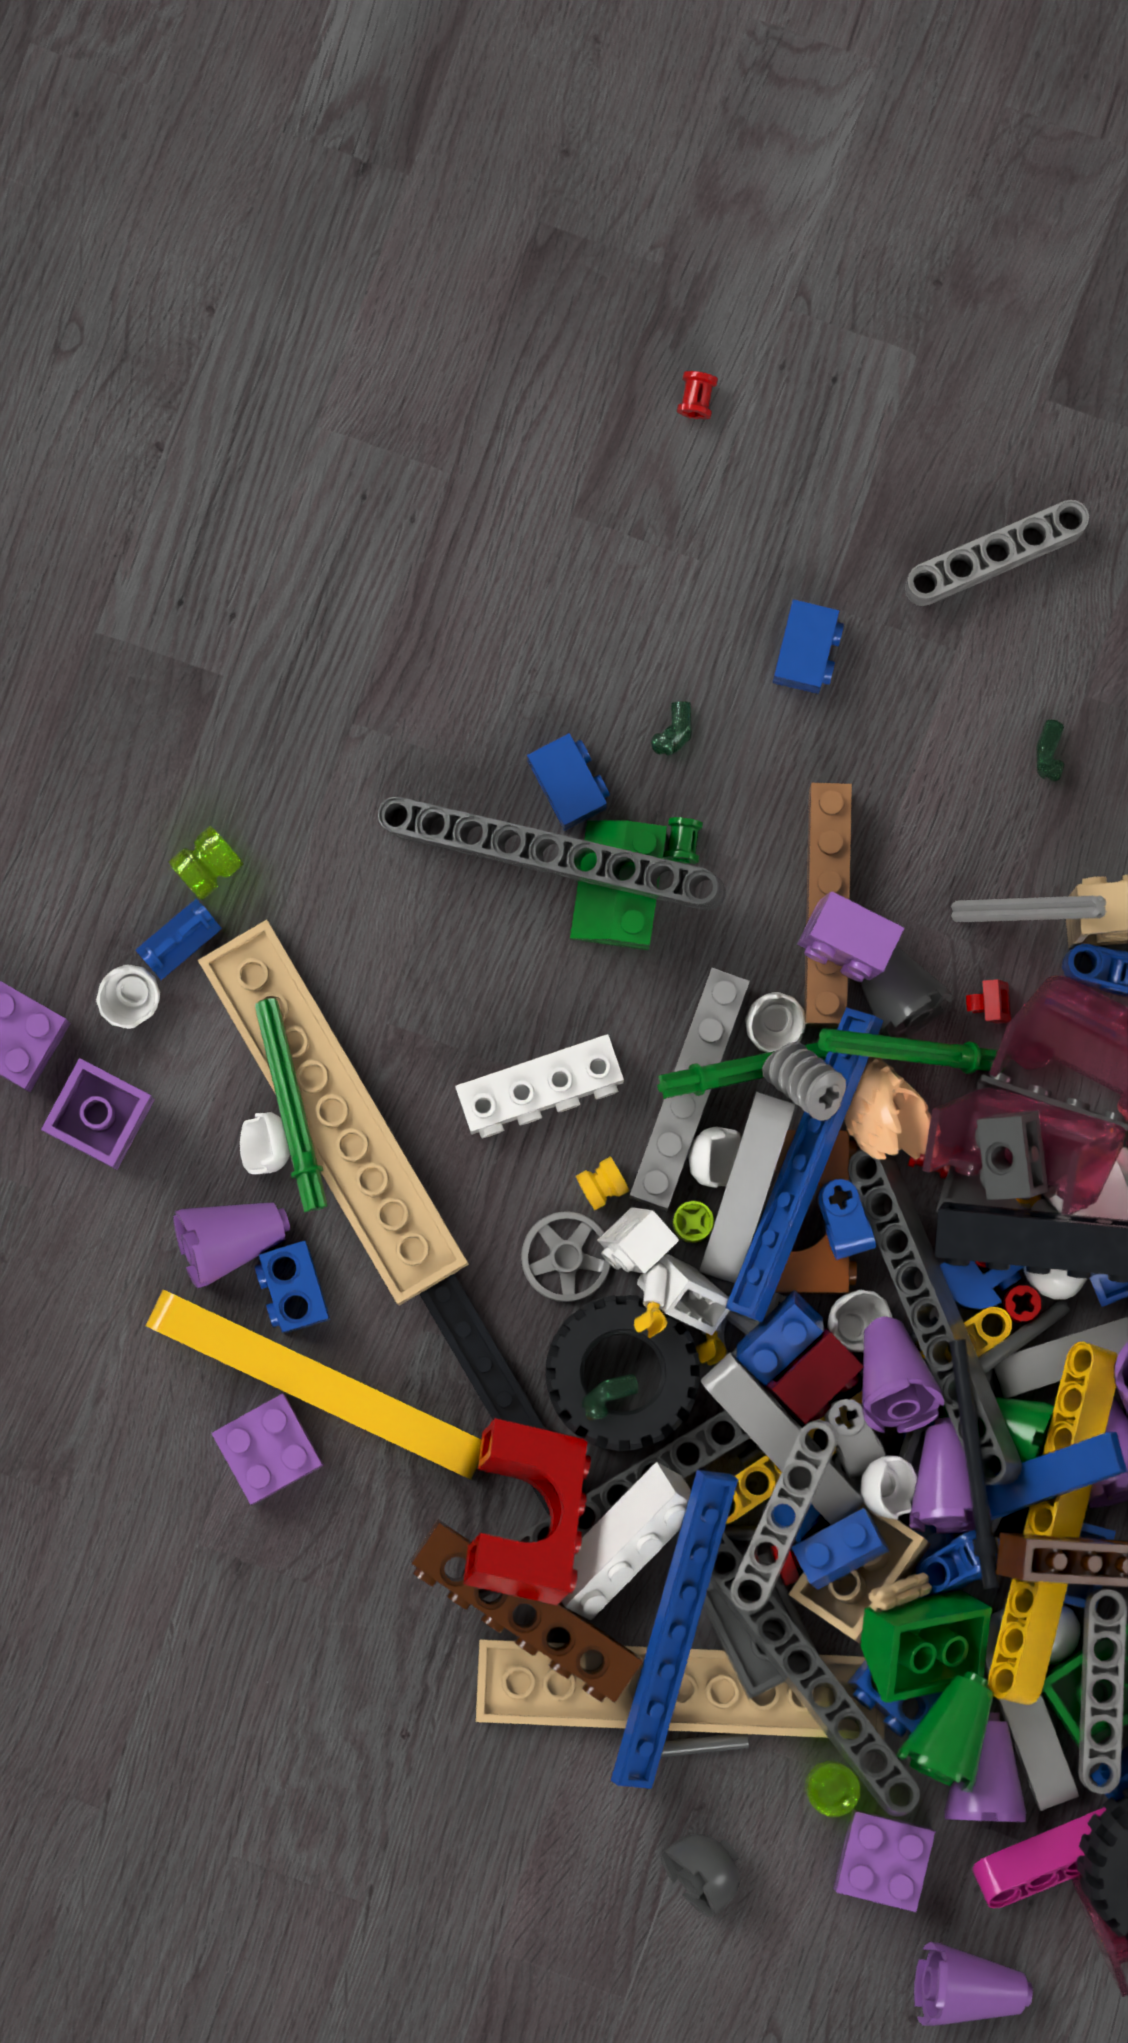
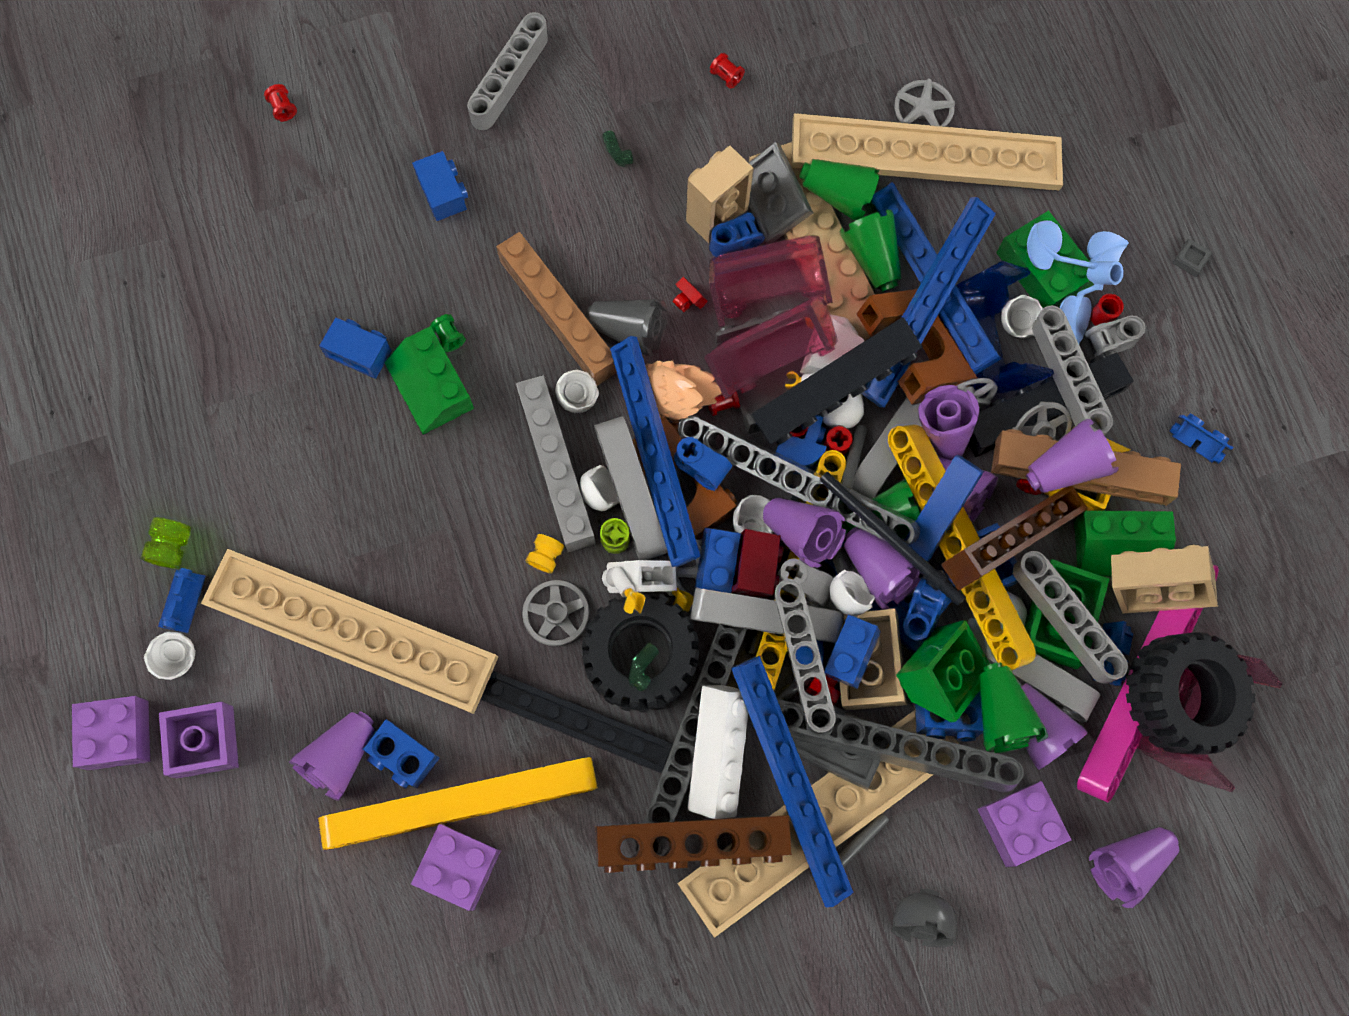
camera: 40 degrees left, 10 degrees down
(263, 1144) = (320, 680): white hair -> none
(291, 1105) = (316, 642): green axle -> none
(535, 841) = (358, 383): dark grey beam -> none
(540, 1085) = (465, 525): white brick -> none
(556, 1468) = (645, 738): red arch -> none
(637, 1241) = (590, 567): white brick -> none
(678, 733) = (401, 280): clear green arm -> none
(702, 1078) = (555, 444): green axle -> none
(805, 1080) = (617, 399): light grey piece -> none
(832, 1788) = (959, 804): clear neon green wheel -> none
(849, 937) = (581, 300): medium lavender brick -> none
(900, 1592) = (907, 650): tan axle -> none
(965, 1057) = (699, 331): green axle -> none
(1023, 1137) = (785, 360): dark grey brick -> none
(1028, 909) = (671, 218): light grey axle -> none

